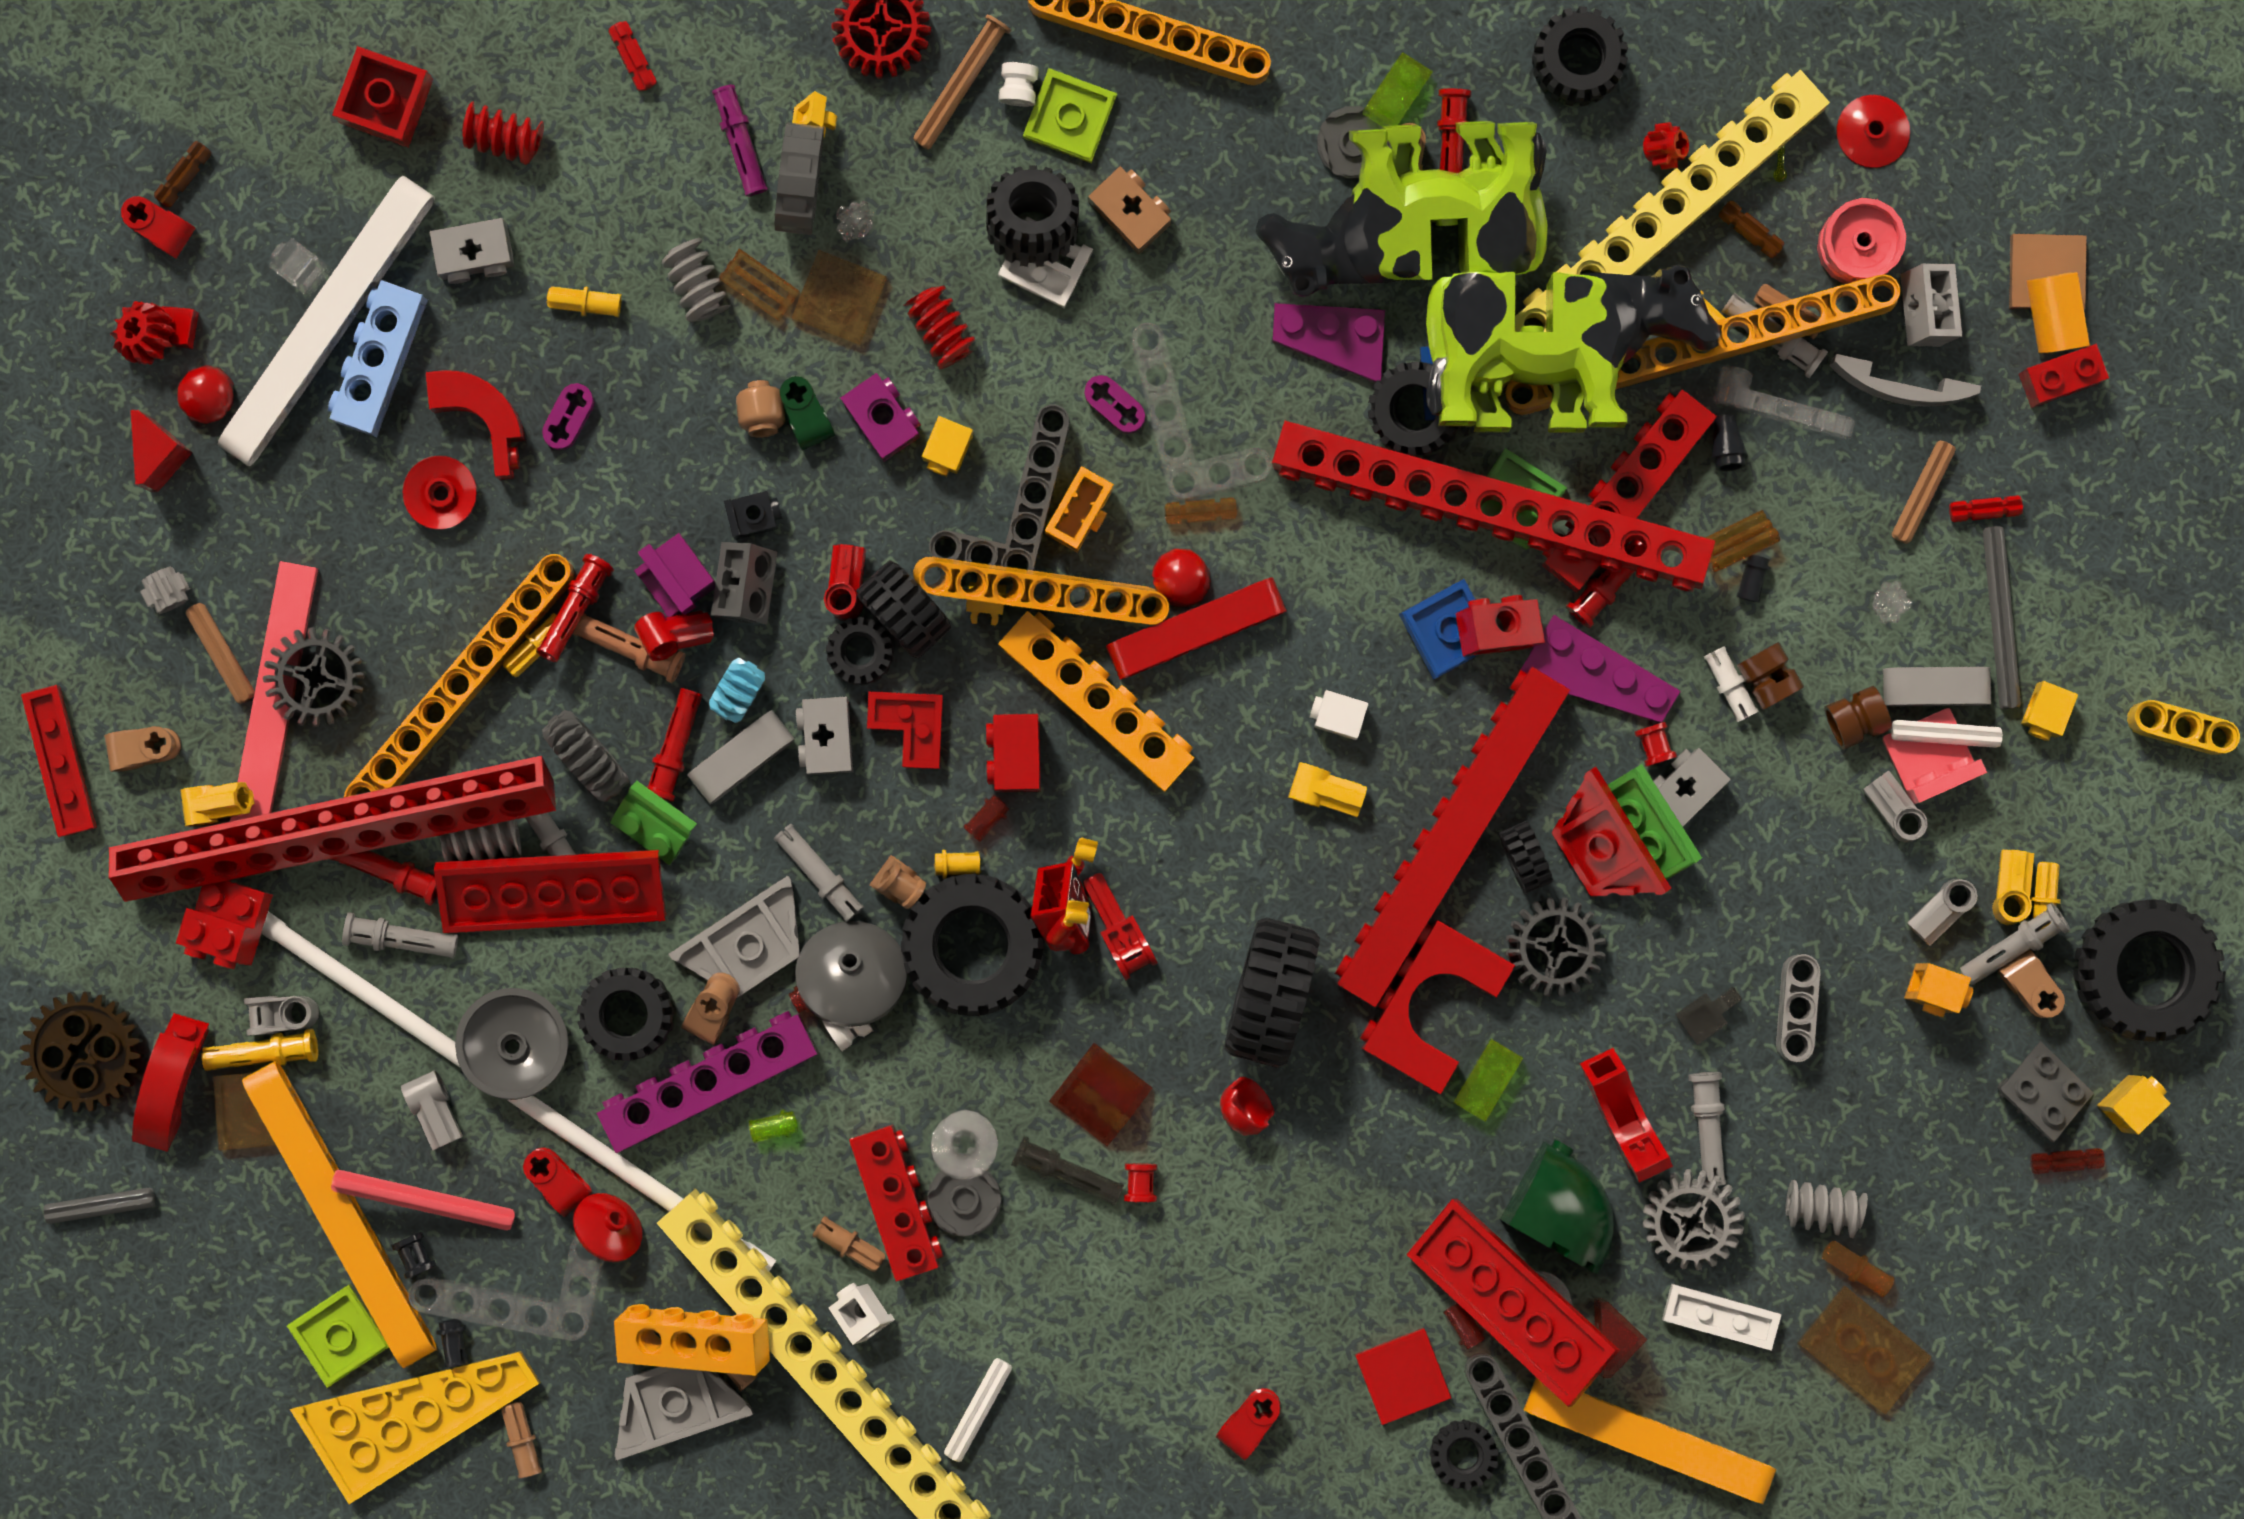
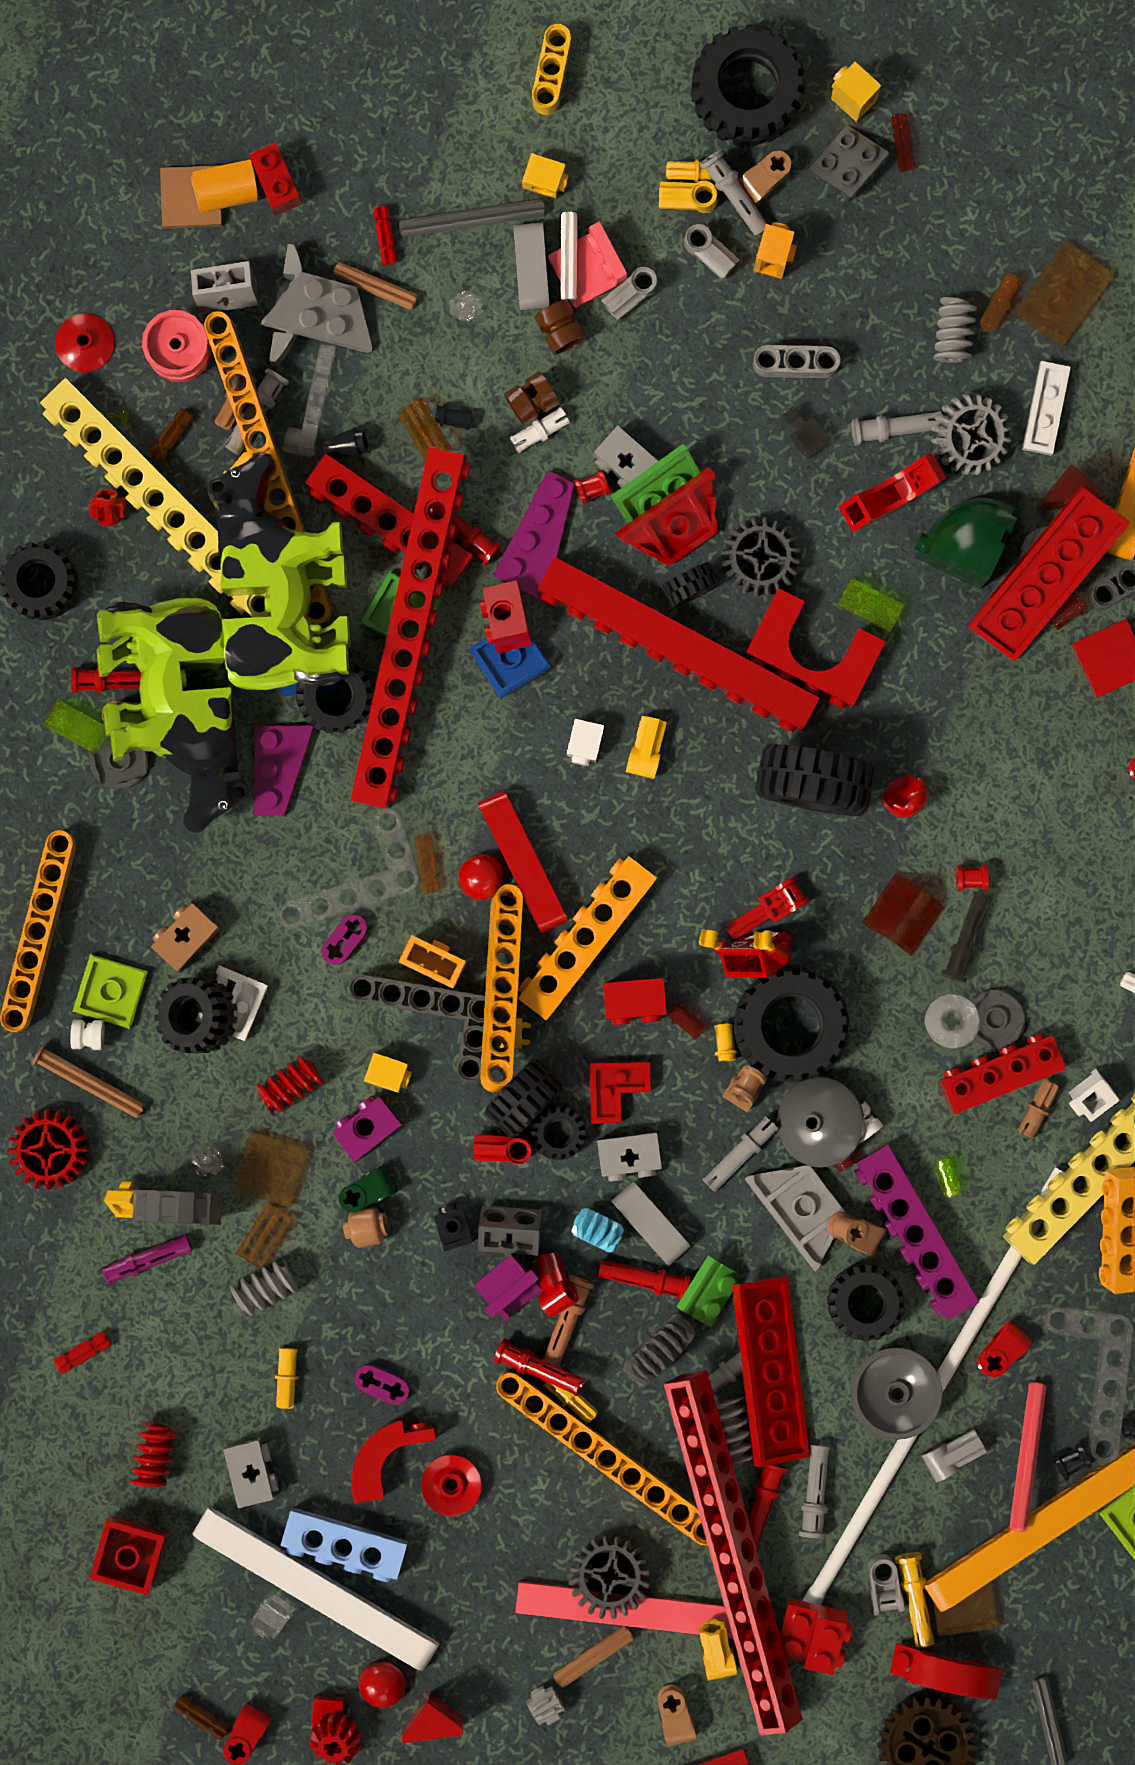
camera: 90 degrees left, 0 degrees up
(607, 1227) = (1042, 1313): red dish -> none
(1893, 422) = (321, 312): none -> light grey wing

